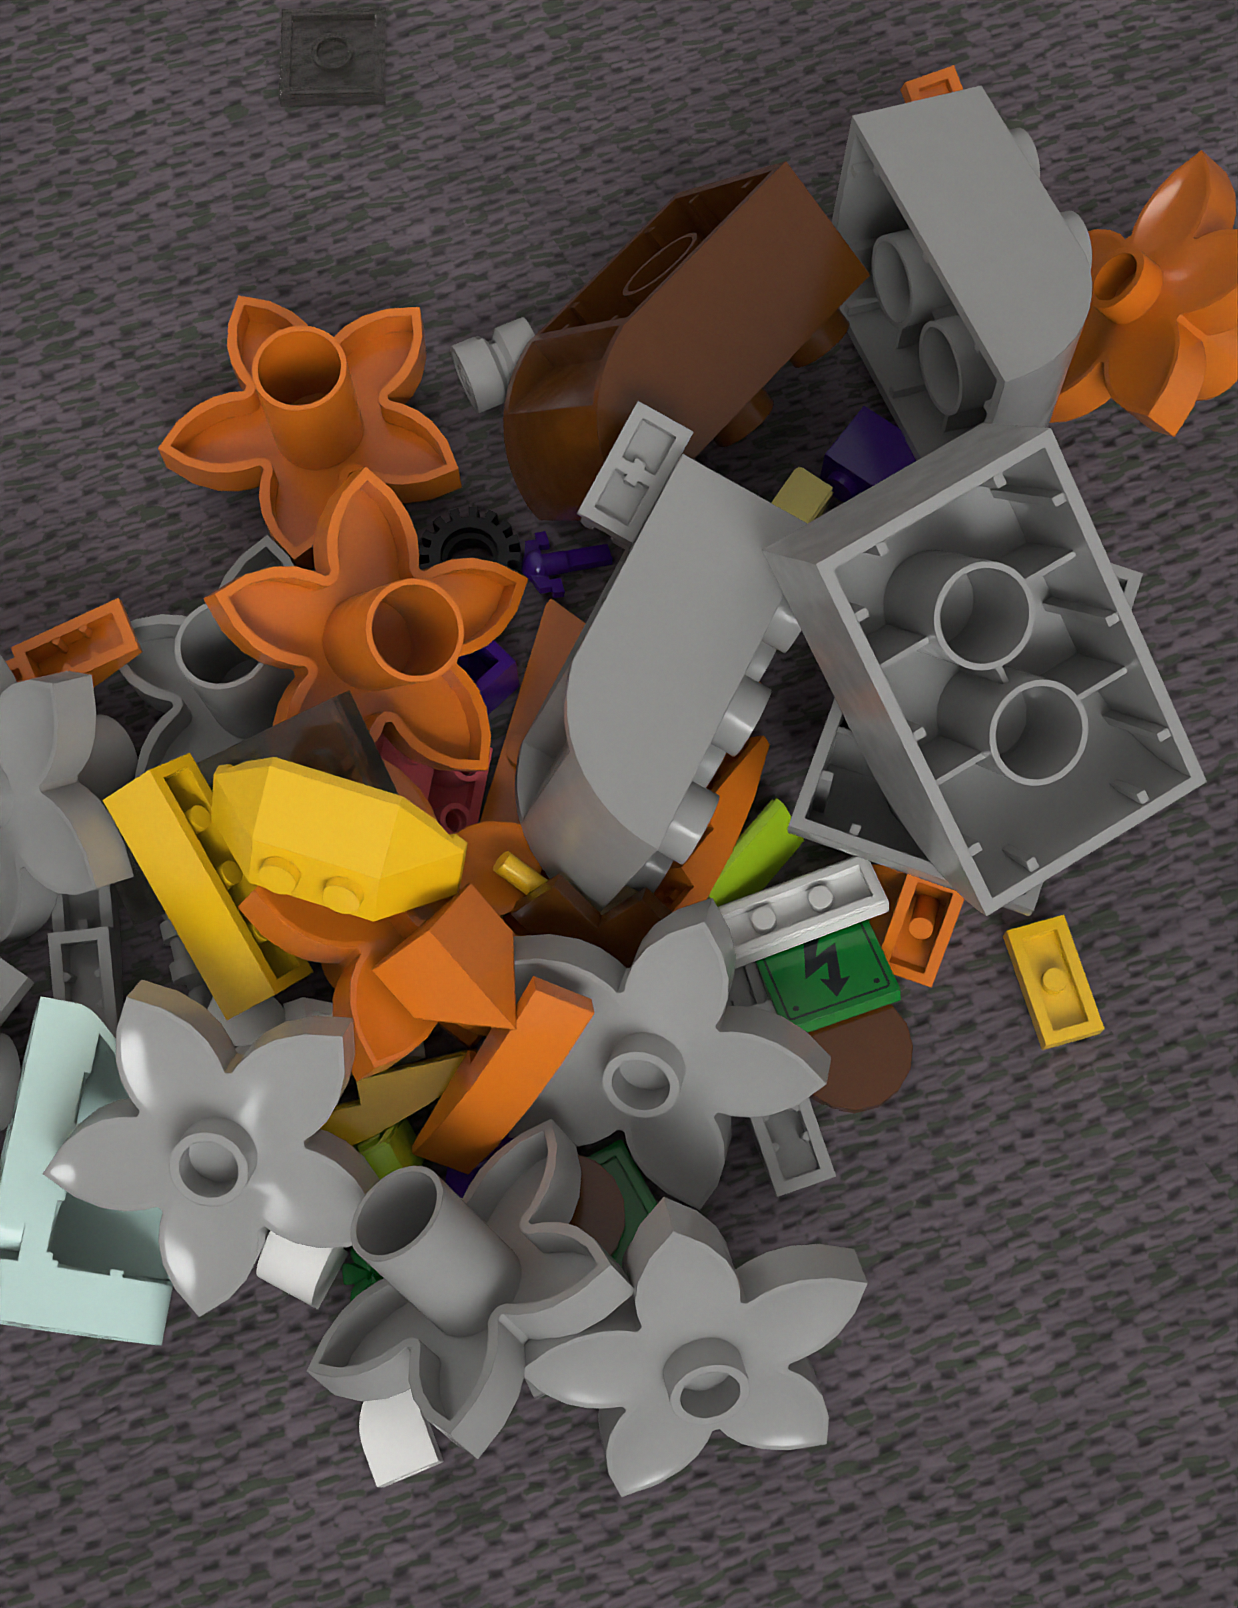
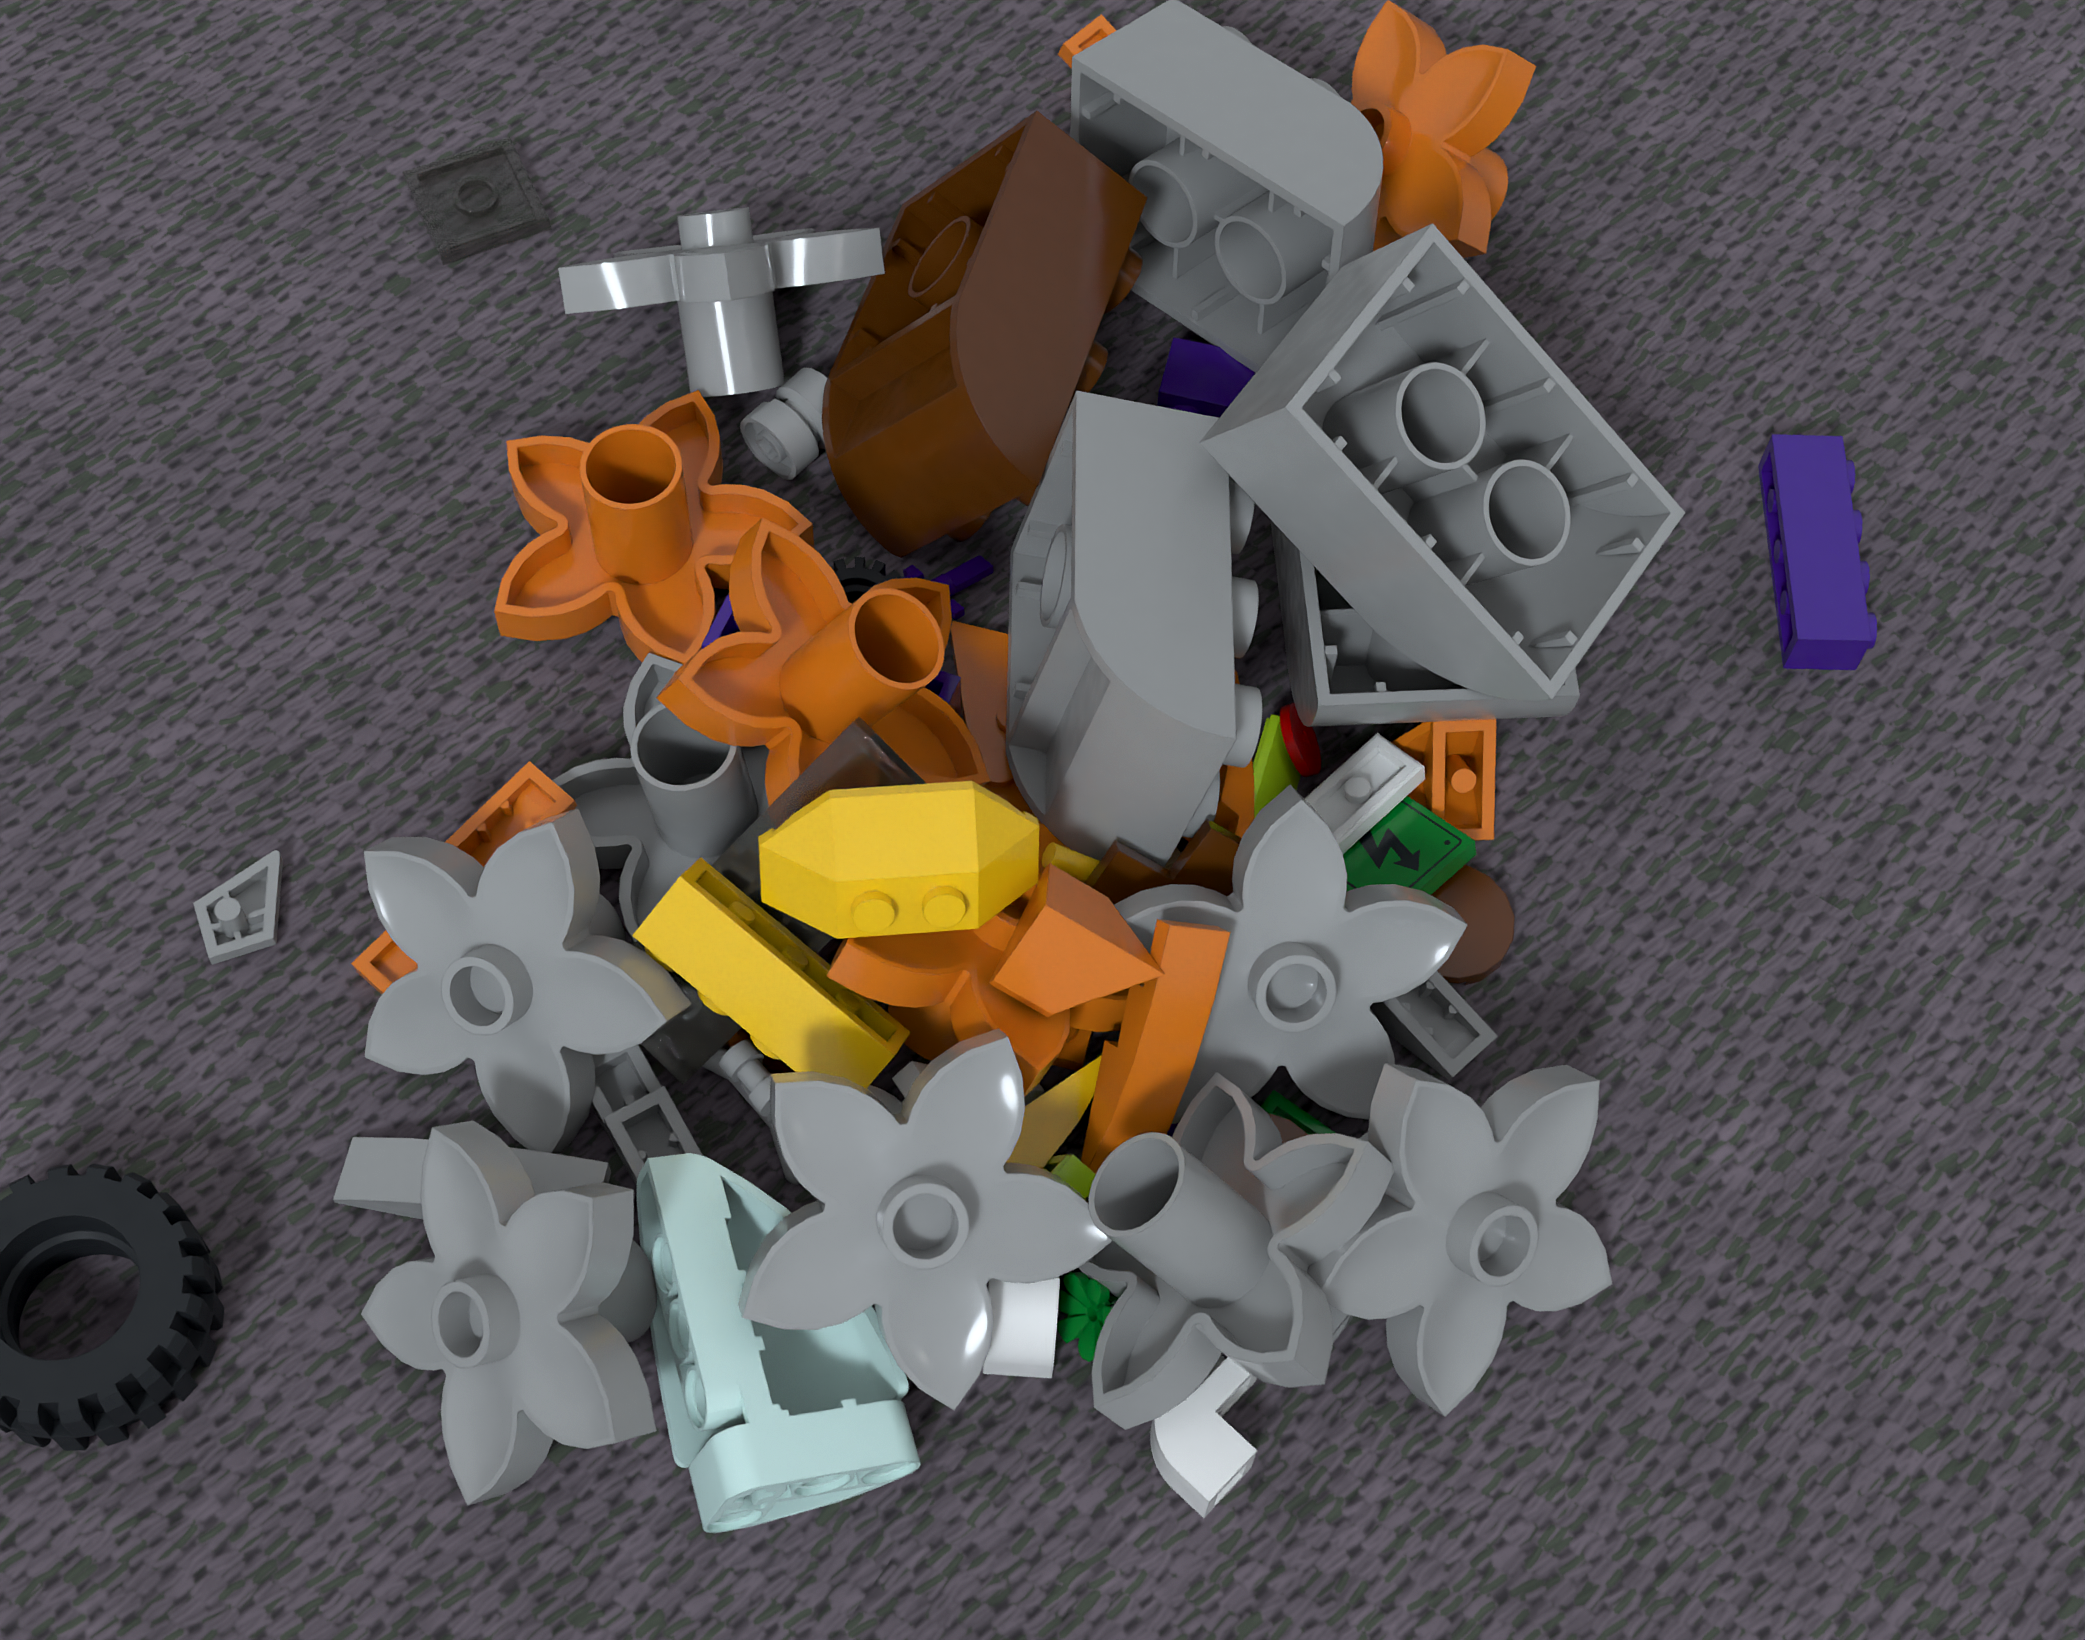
camera: 30 degrees left, 10 degrees down
(476, 217) = (724, 289): none -> light grey plant
(634, 475) = (1033, 435): light grey hinge -> none
(790, 847) = (1300, 742): none -> red wheel
(1053, 982) = (1604, 788): yellow plate -> none

